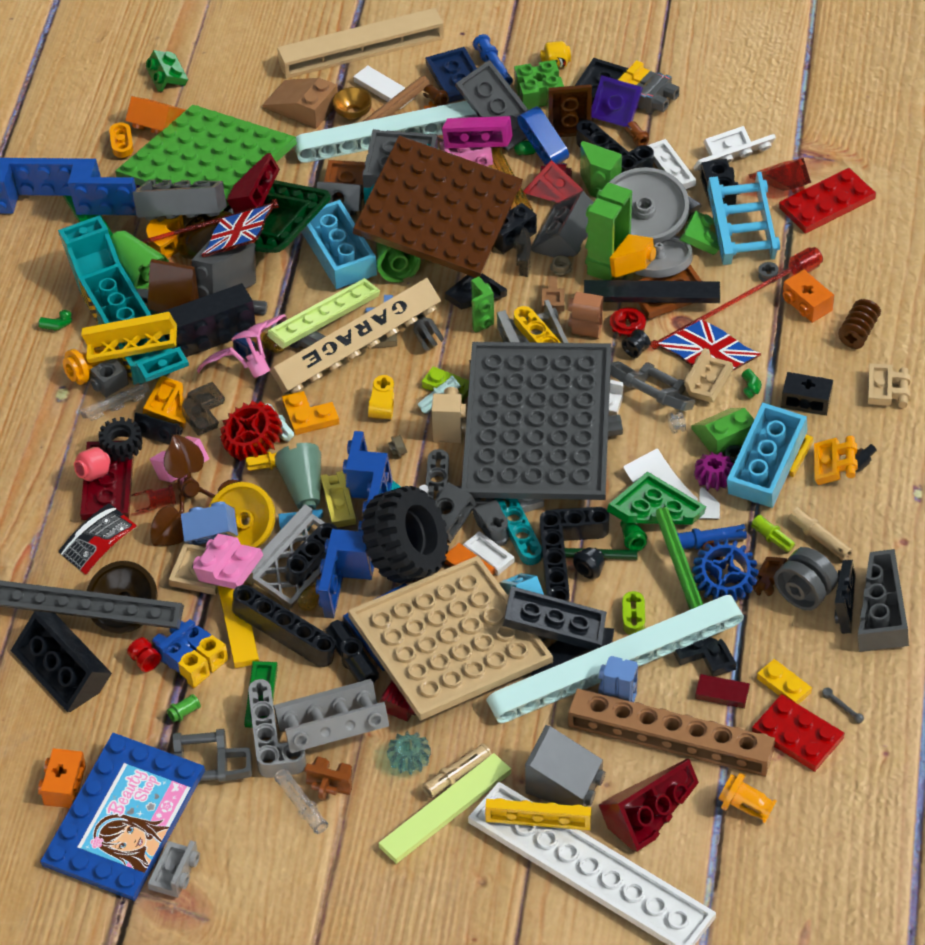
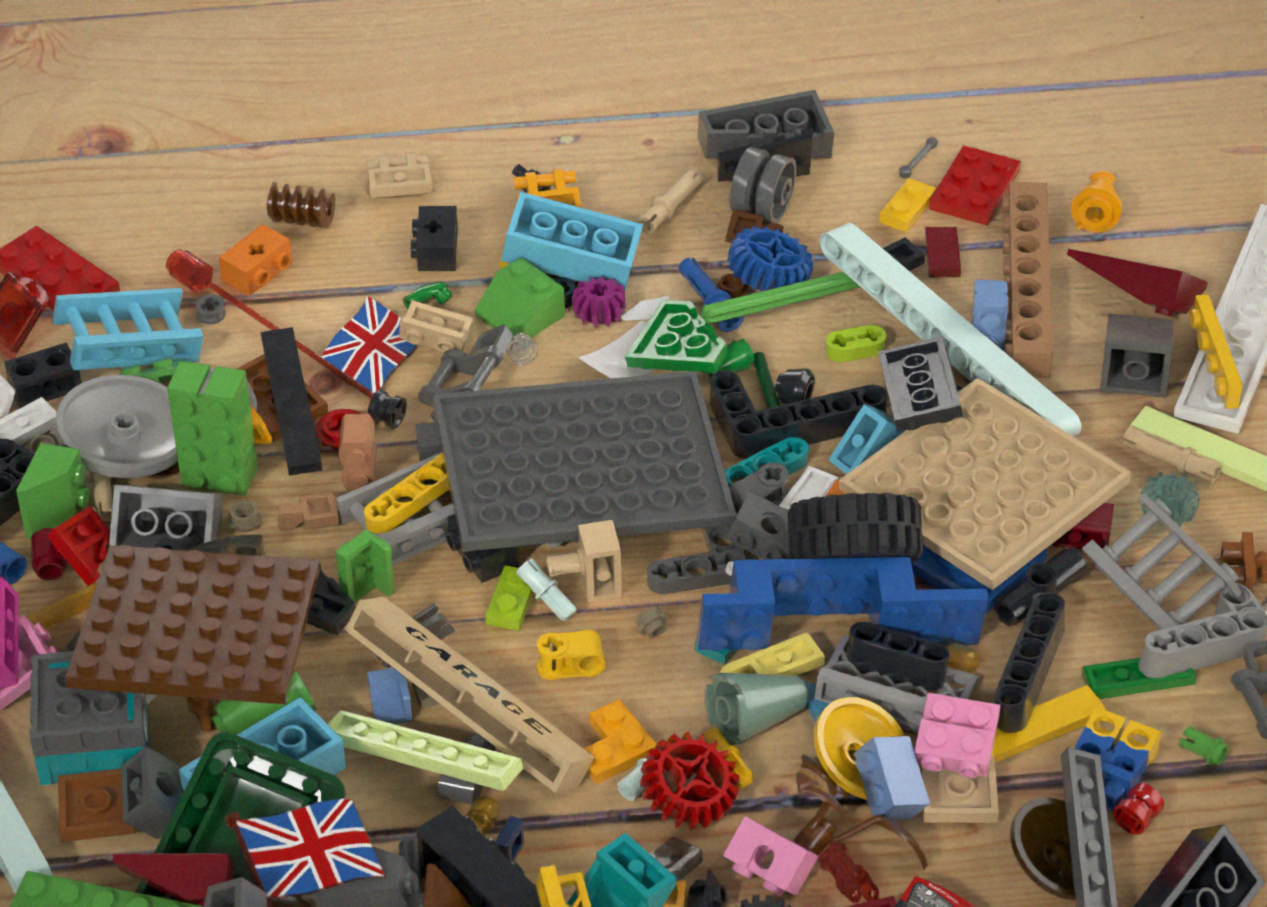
camera: 105 degrees left, 5 degrees down
(256, 360) = (550, 762): bright pink plant -> none
(772, 533) = (681, 241): lime axle -> none

